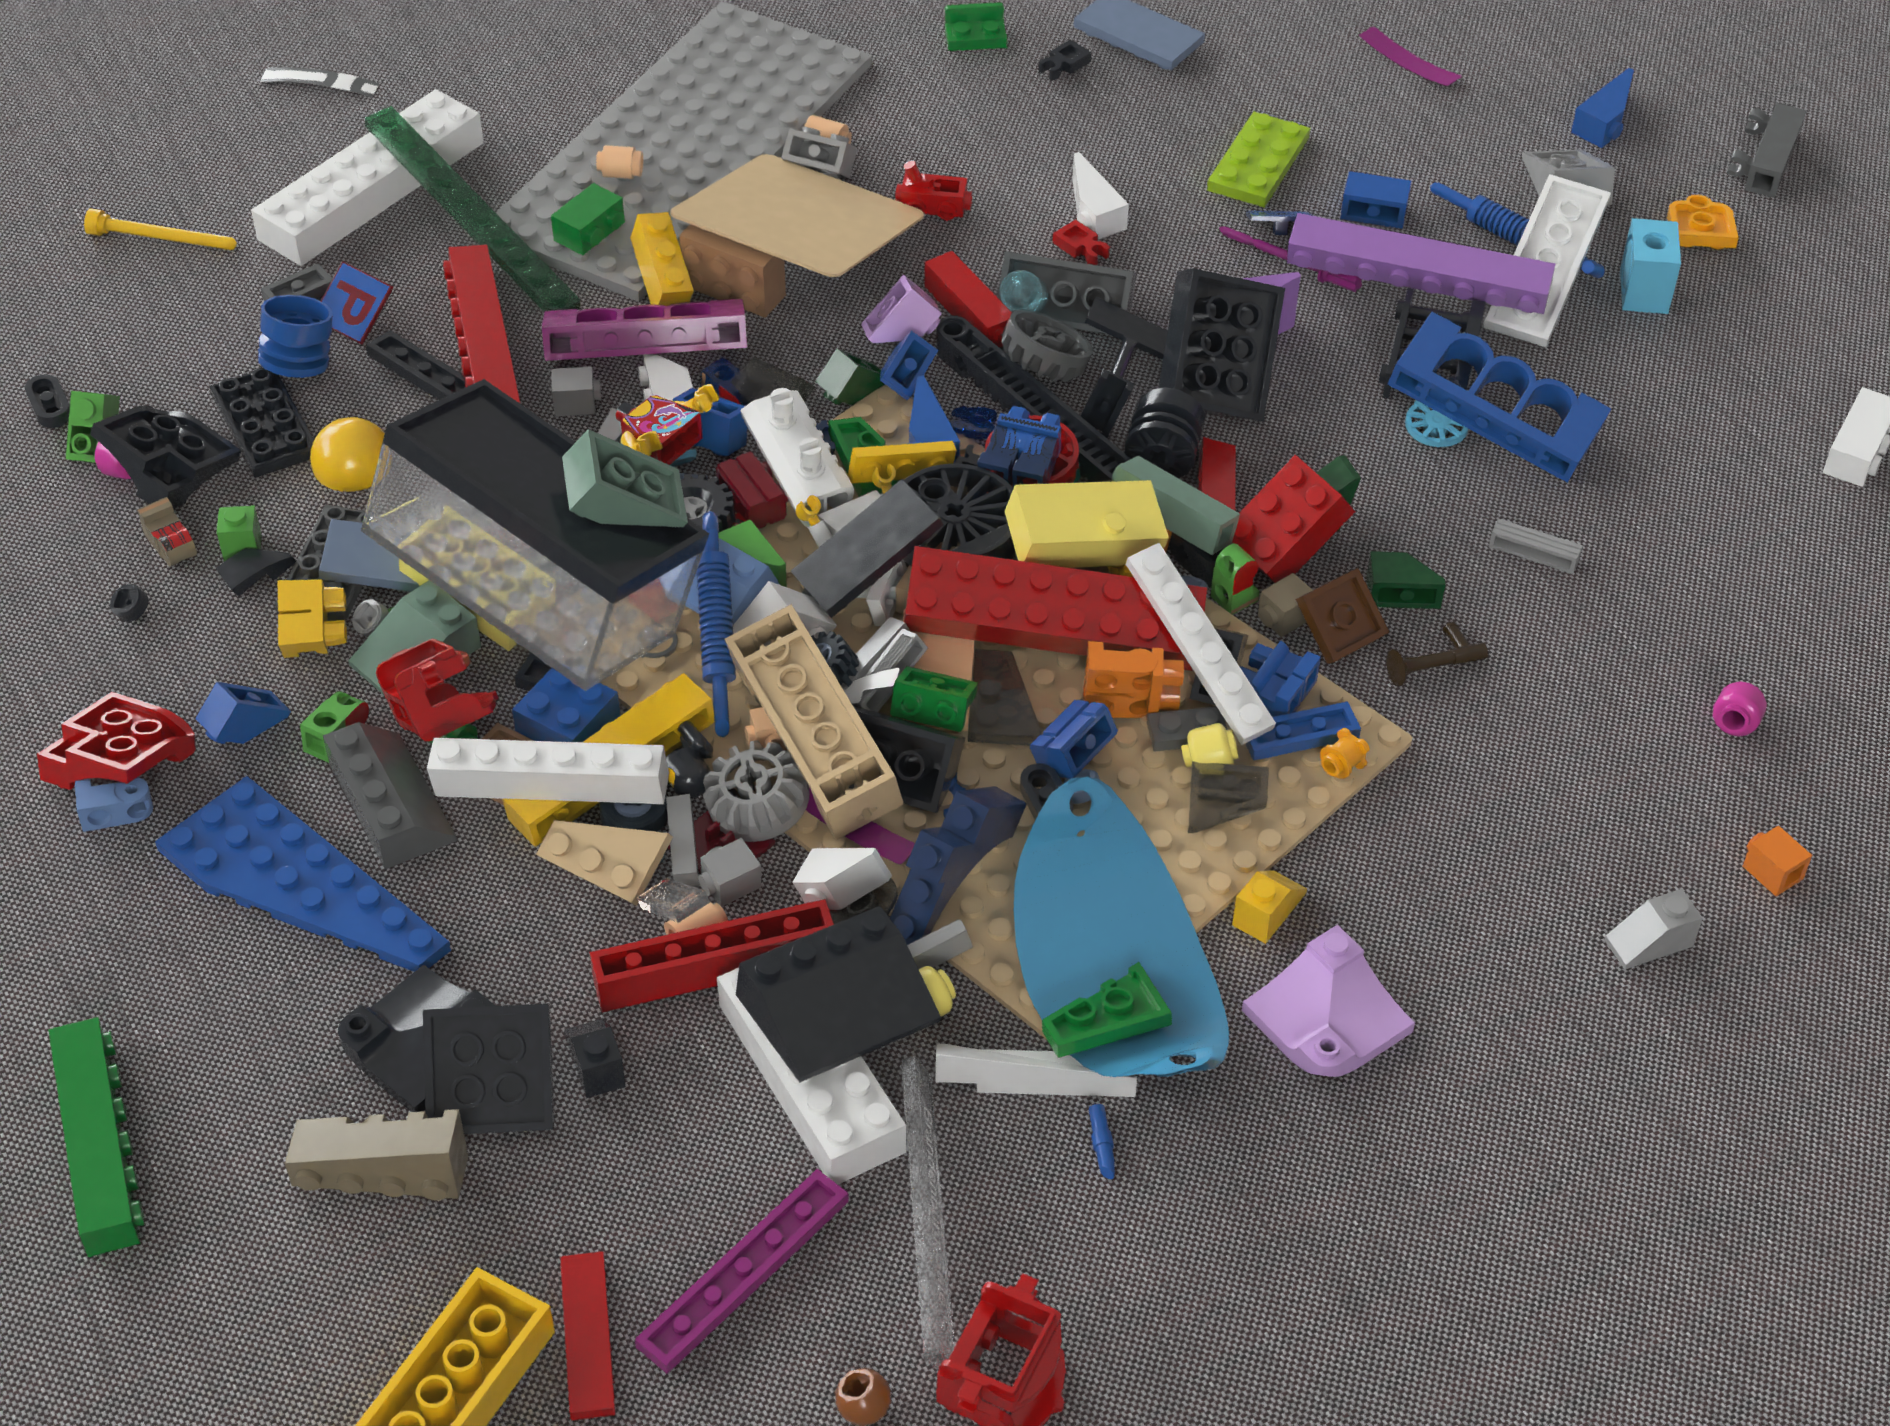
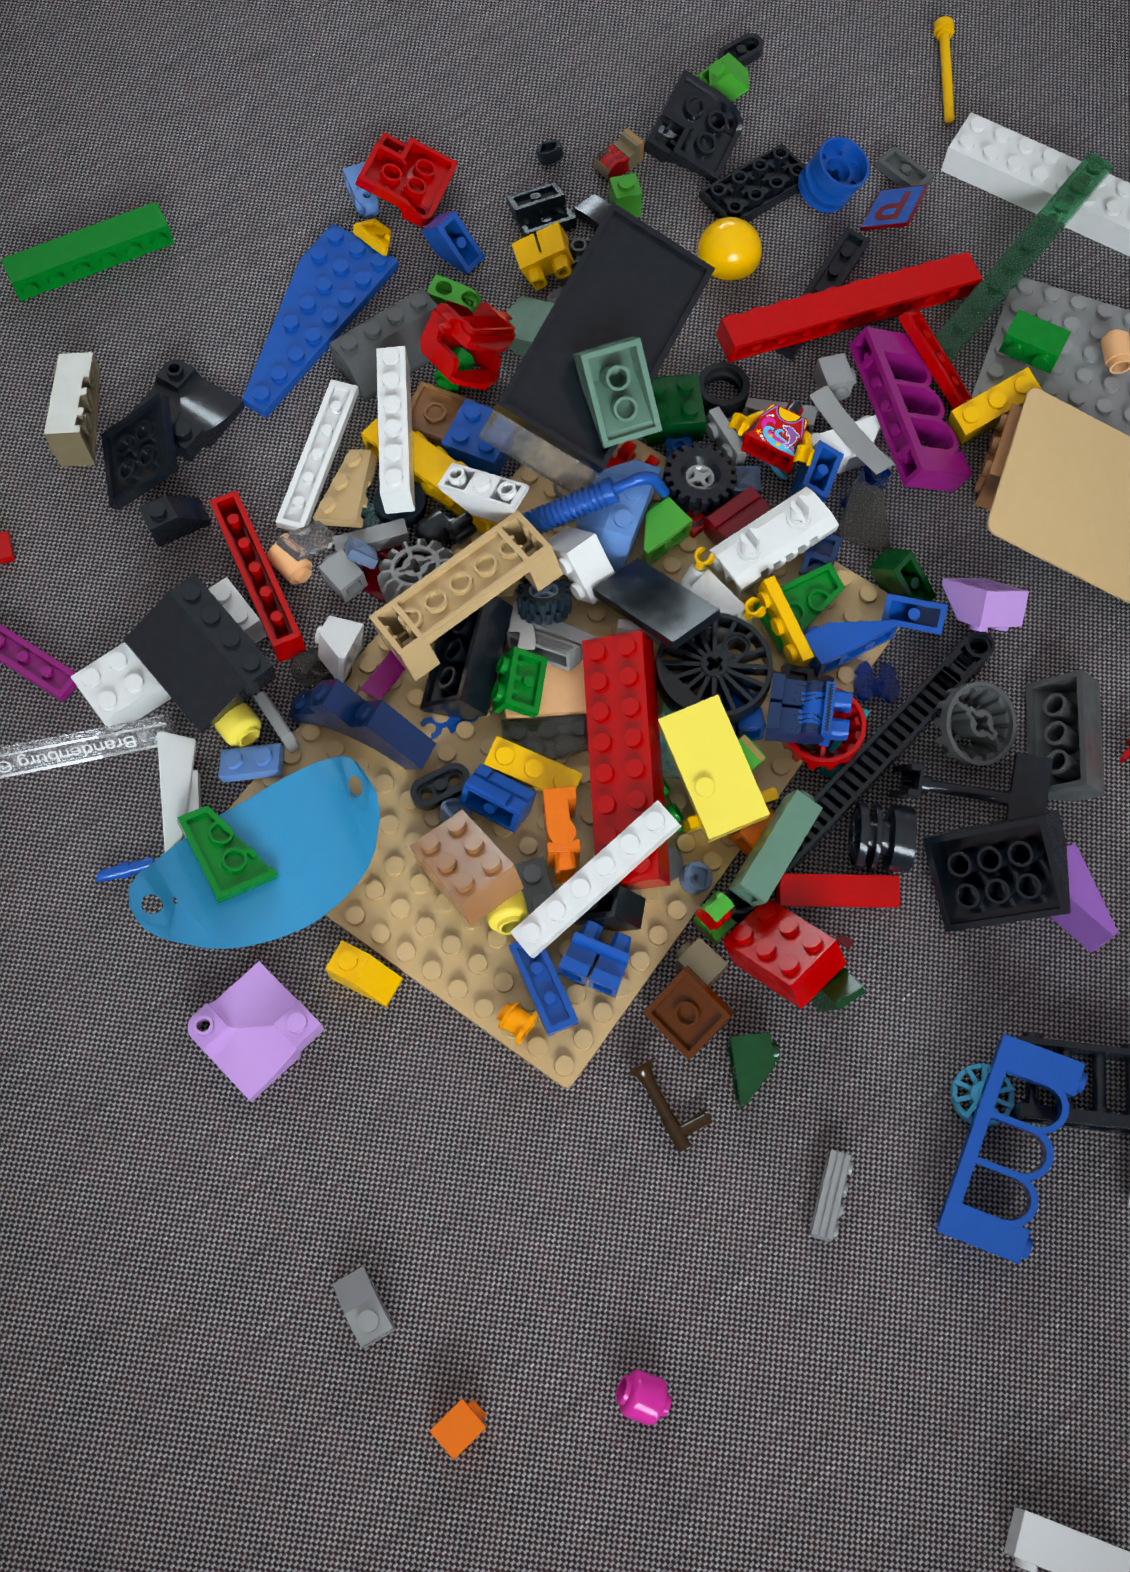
camera: 80 degrees right, 20 degrees up
(199, 793) = (374, 234): none -> yellow tile
(221, 626) = (540, 208): none -> black slope
(538, 888) = (317, 456): none -> white plate
(582, 301) = (935, 358): none -> red tile
(664, 379) = (849, 431): none -> light grey sticker
(683, 677) = (482, 492): none -> white slope
(710, 837) = (361, 552): none -> sand blue tile
(966, 295) = (1034, 654): red brick -> none
(978, 989) = (251, 762): none -> medium blue plate
(1023, 291) = (1036, 695): clear light blue wheel -> none
(1040, 706) = (529, 766): none -> yellow plate
(1164, 763) = (467, 867): none -> medium nougat brick
(1225, 793) = (464, 941): clear smoke wing -> none

